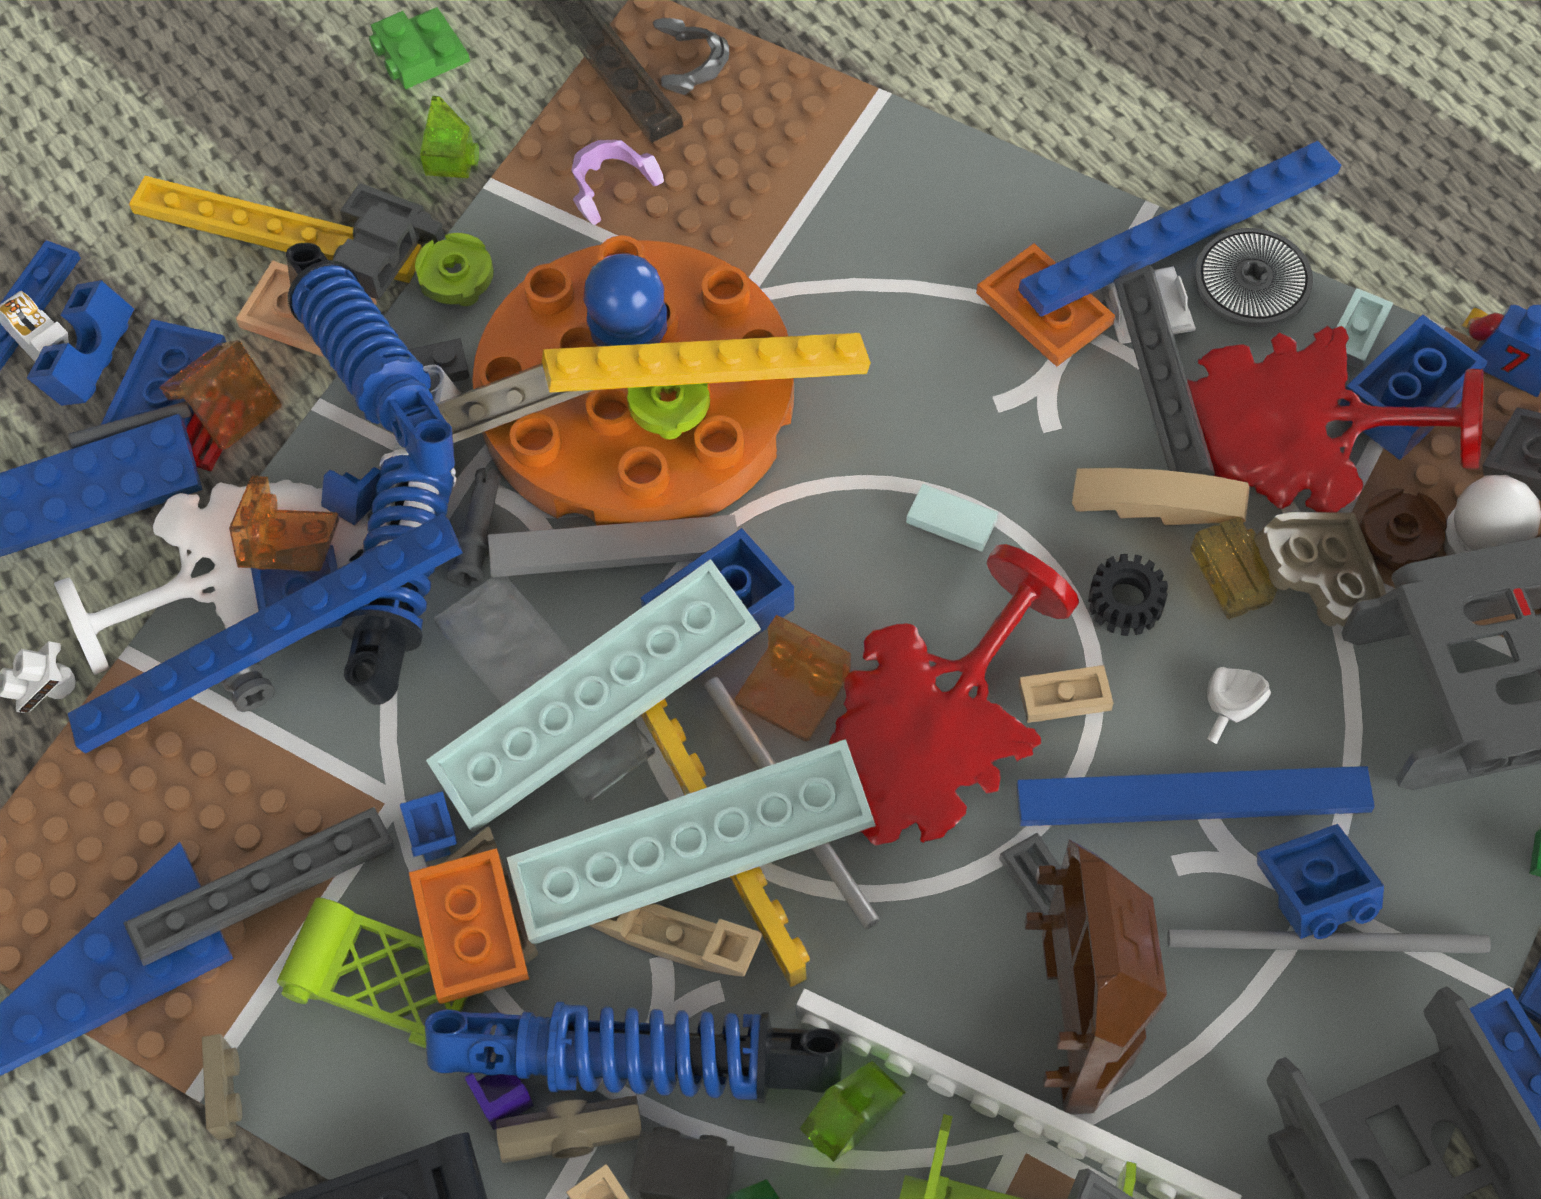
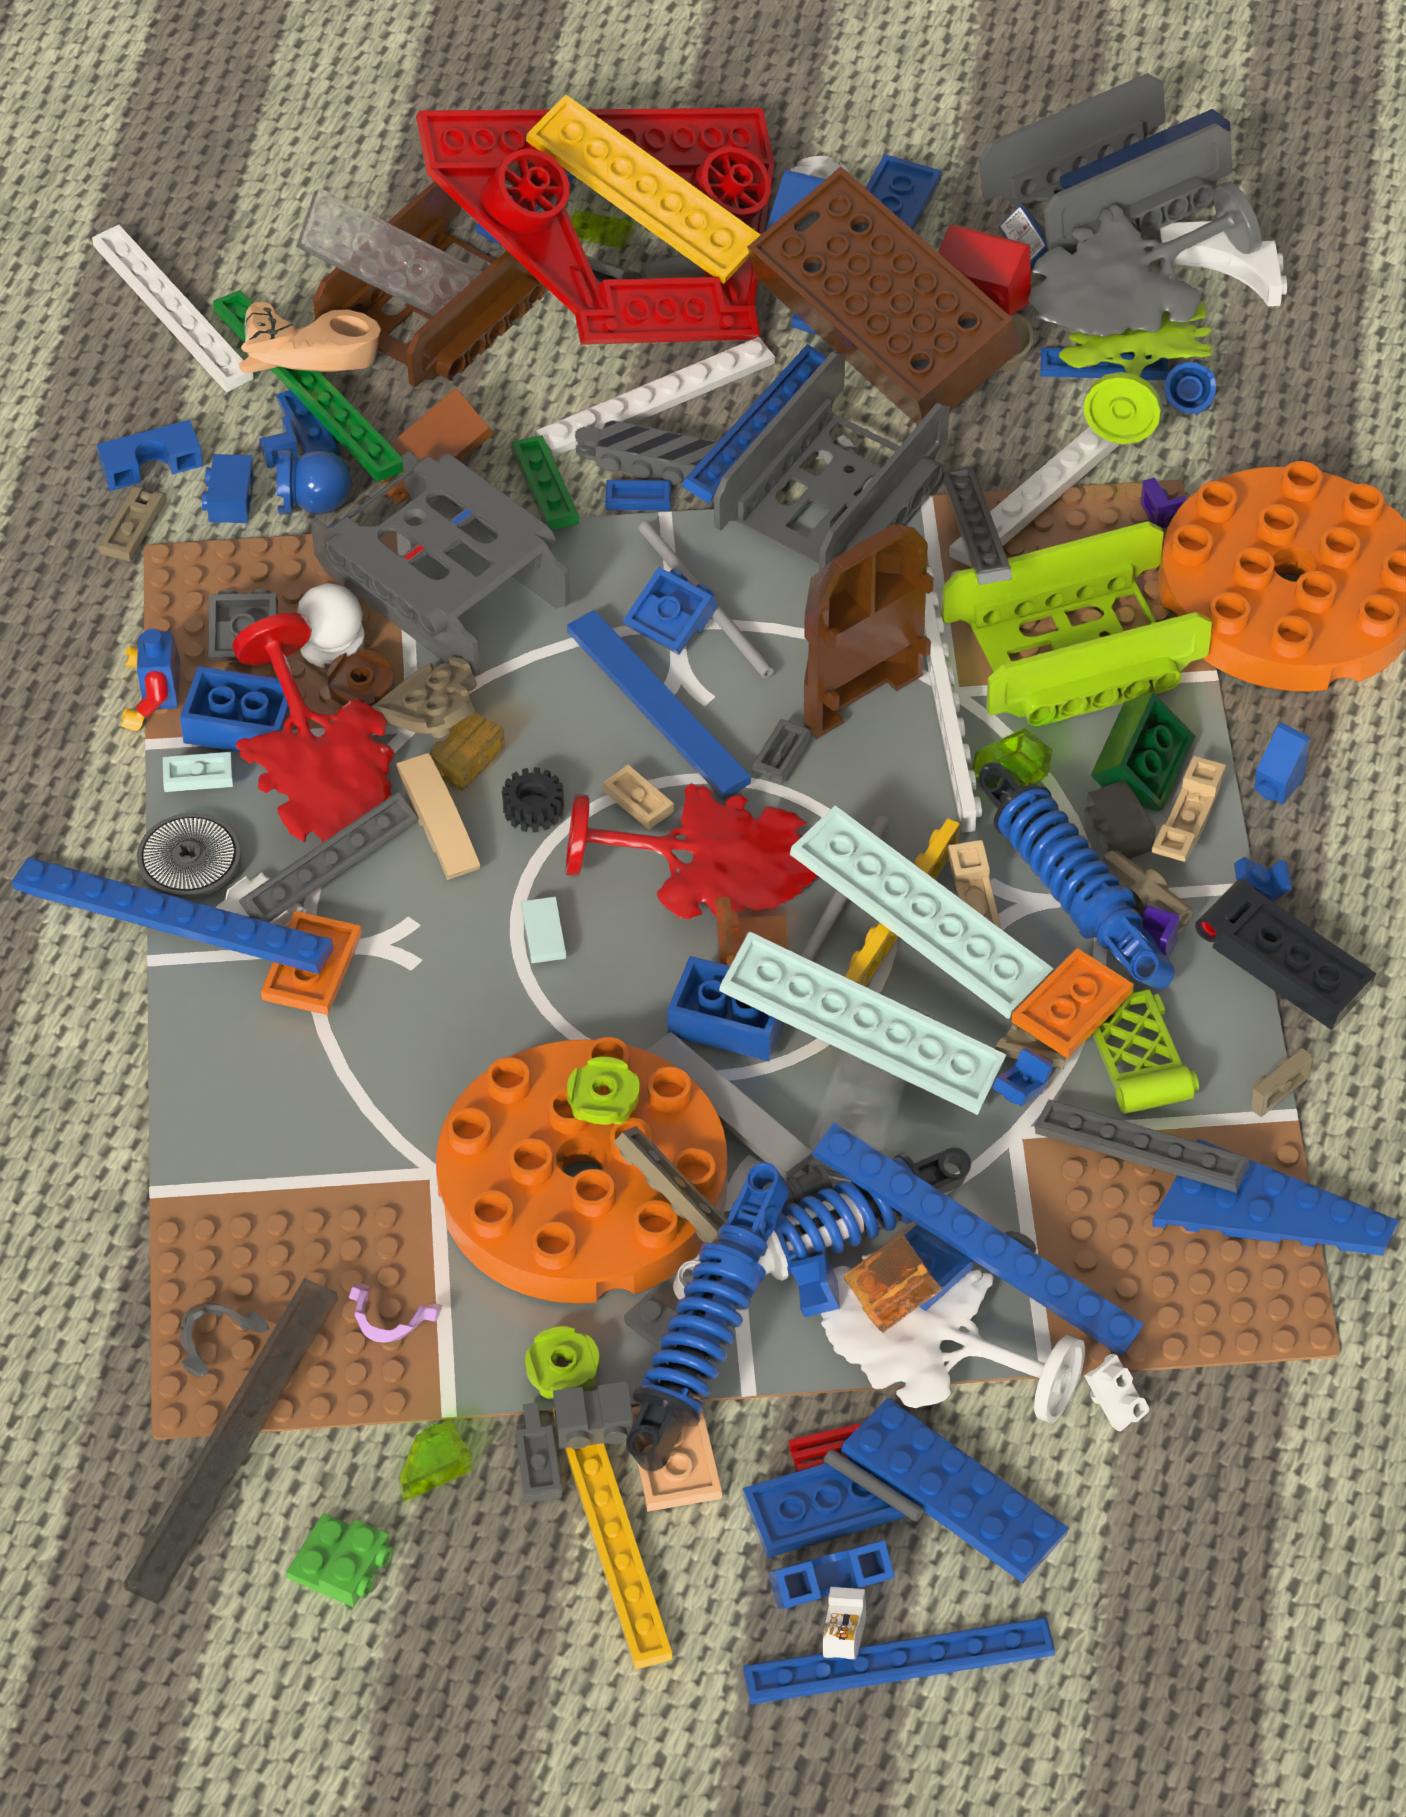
camera: 125 degrees left, 10 degrees down
(224, 392) = (794, 1447): clear orange bracket -> none
(625, 302) = (550, 1149): blue tile -> none
(704, 362) = (563, 1072): yellow plate -> none
(1234, 696) = (567, 709): white piece -> none

